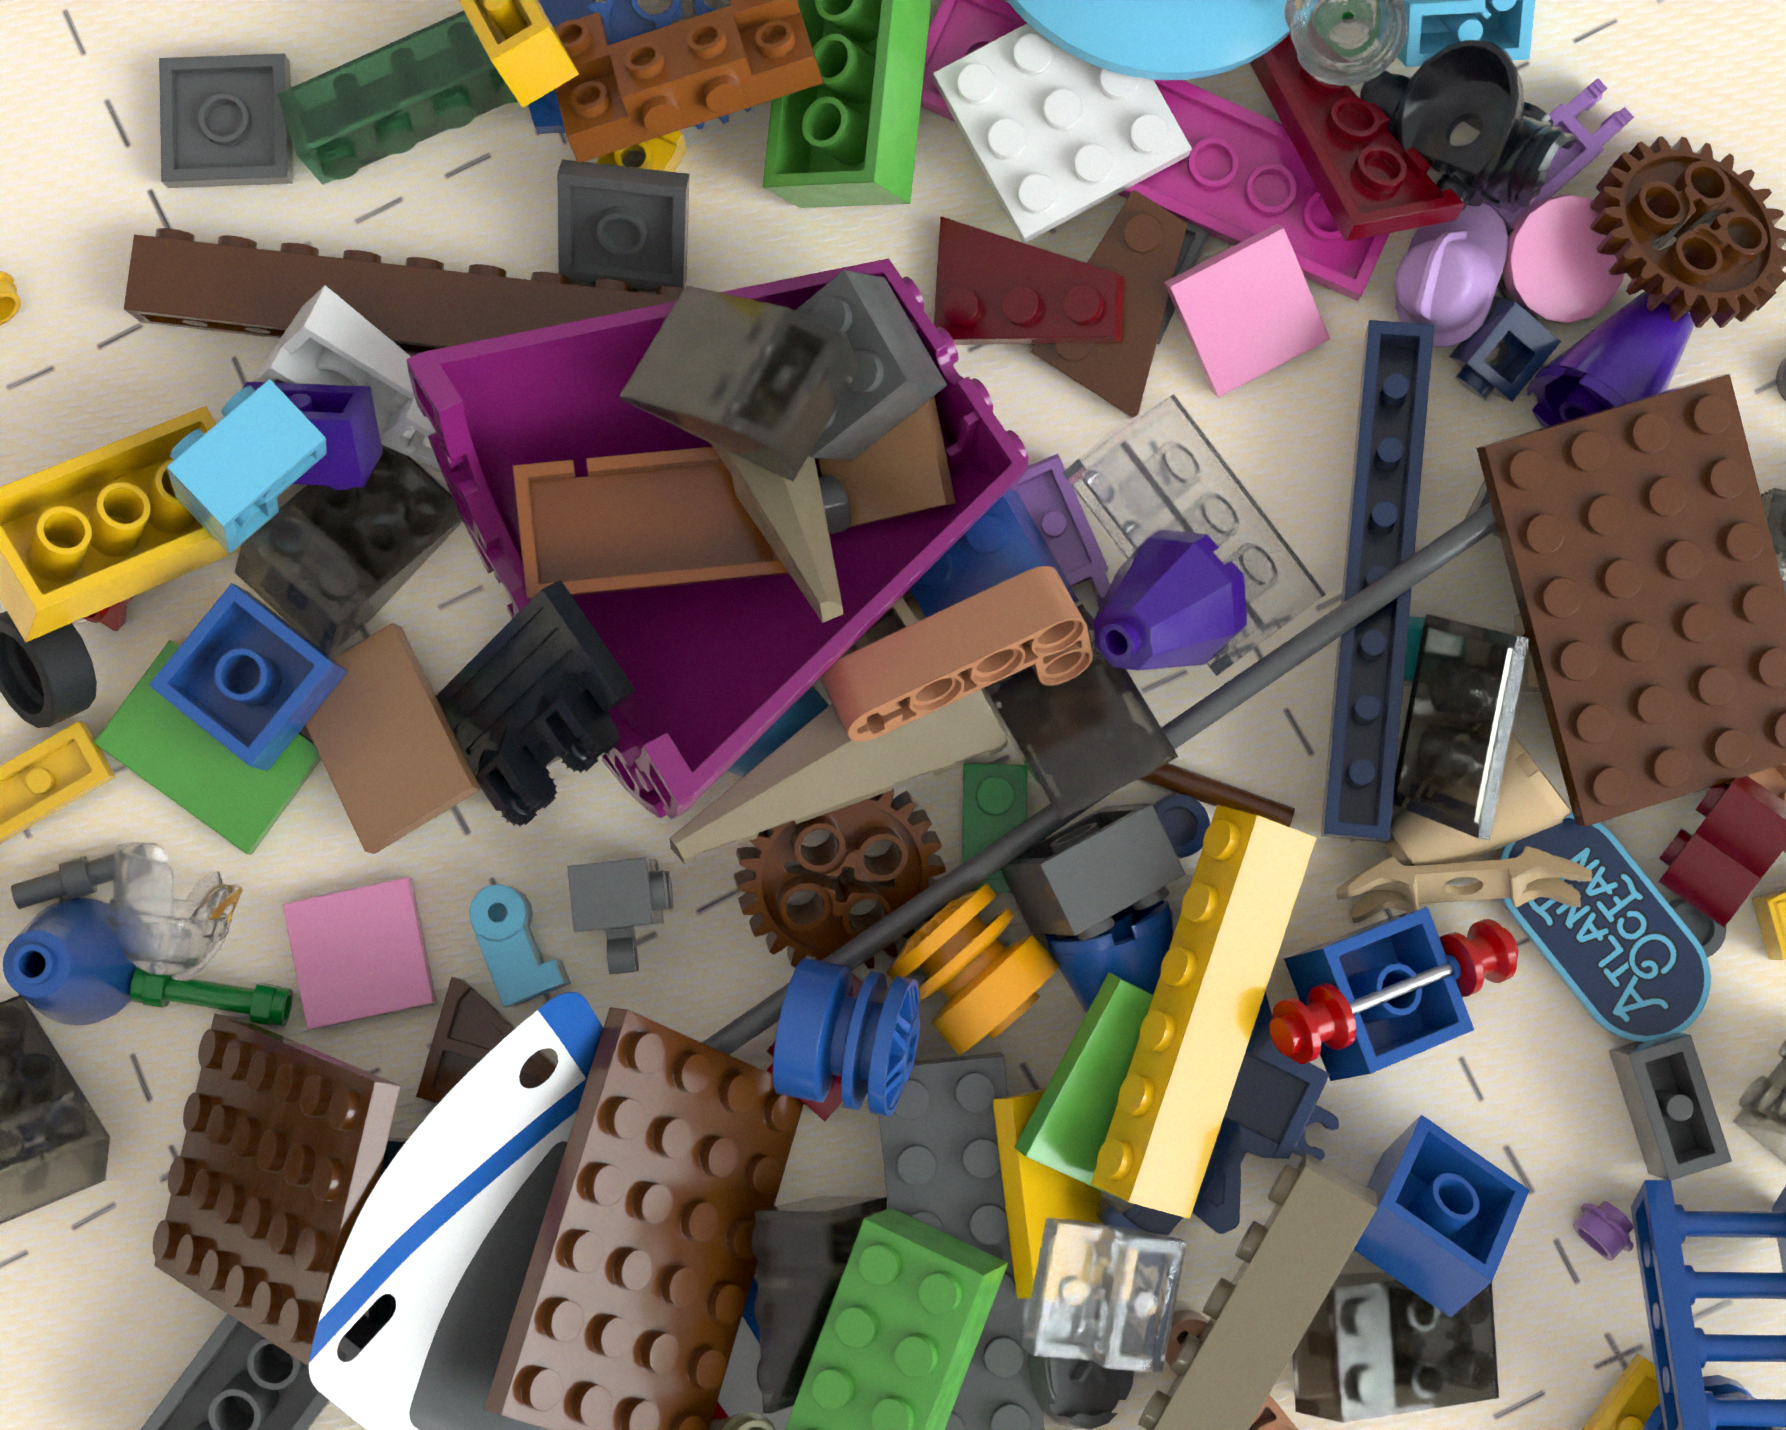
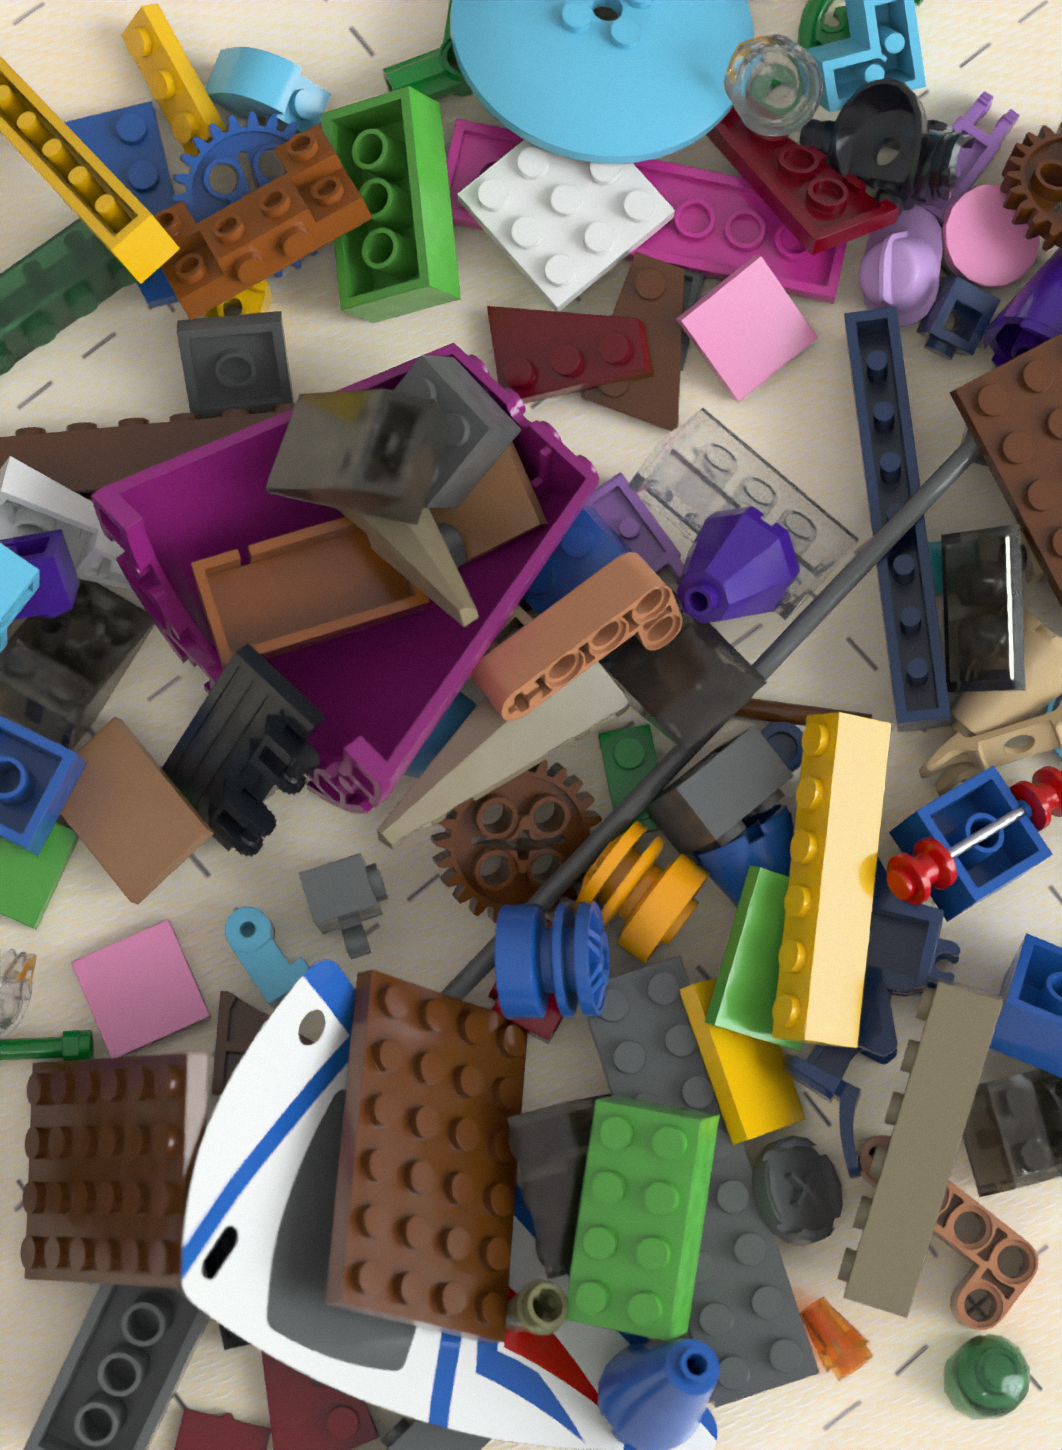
camera: 10 degrees left, 5 degrees down
(1104, 1295) = (802, 1125): clear slope -> none

